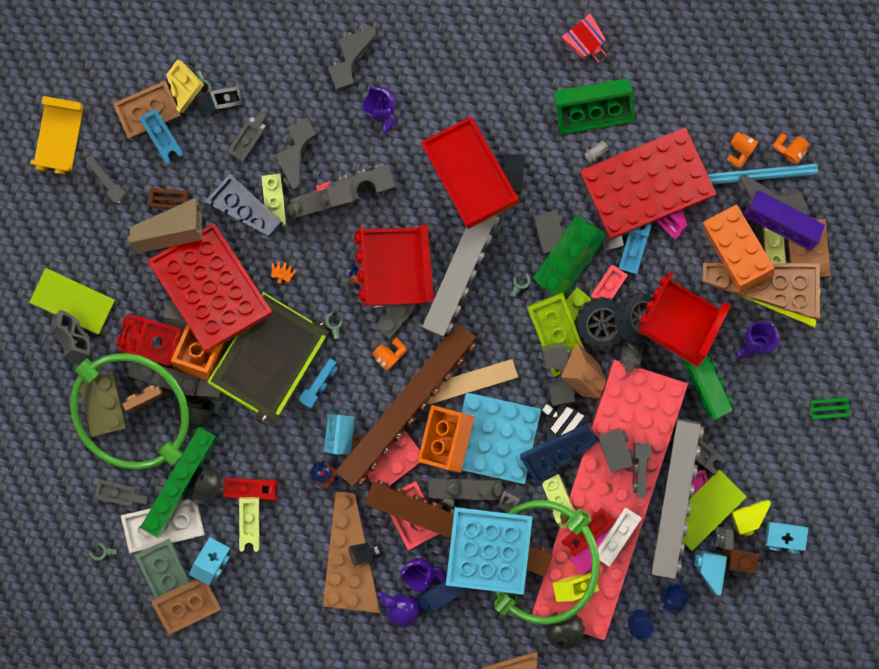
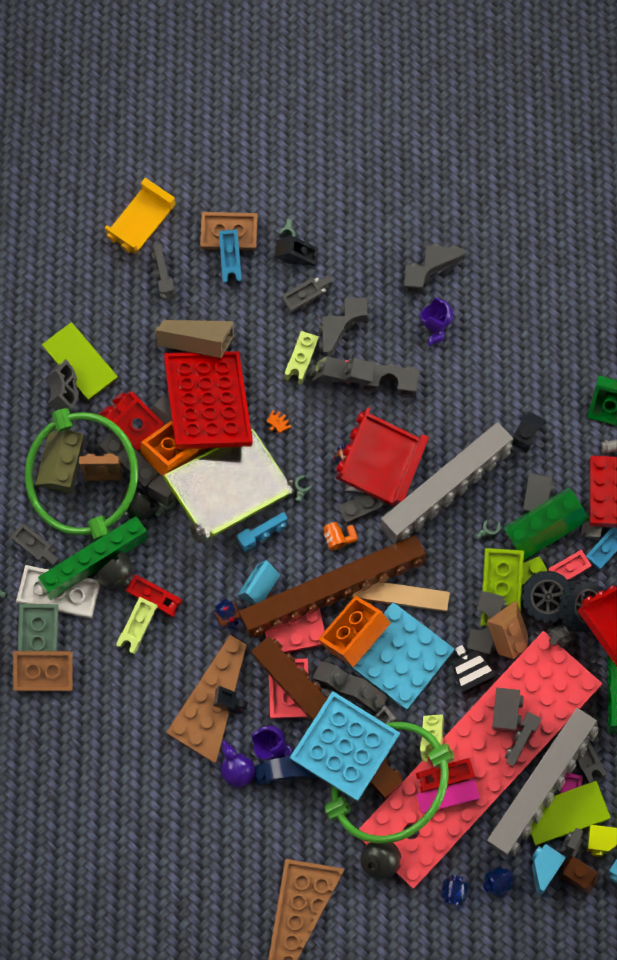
camera: 30 degrees right, 15 degrees down
(166, 191) = (191, 312): reddish brown tile -> none
(184, 85) = (271, 224): light yellow wing -> none
(209, 561) = (84, 640): medium azure brick -> none
(241, 204) = (272, 347): wing -> none
(470, 172) = (489, 406): red tile -> none
(550, 456) = (443, 692): dark blue wing -> none
(572, 587) = (403, 818): neon yellow slope -> none
(618, 536) = (471, 791): white tile -> none

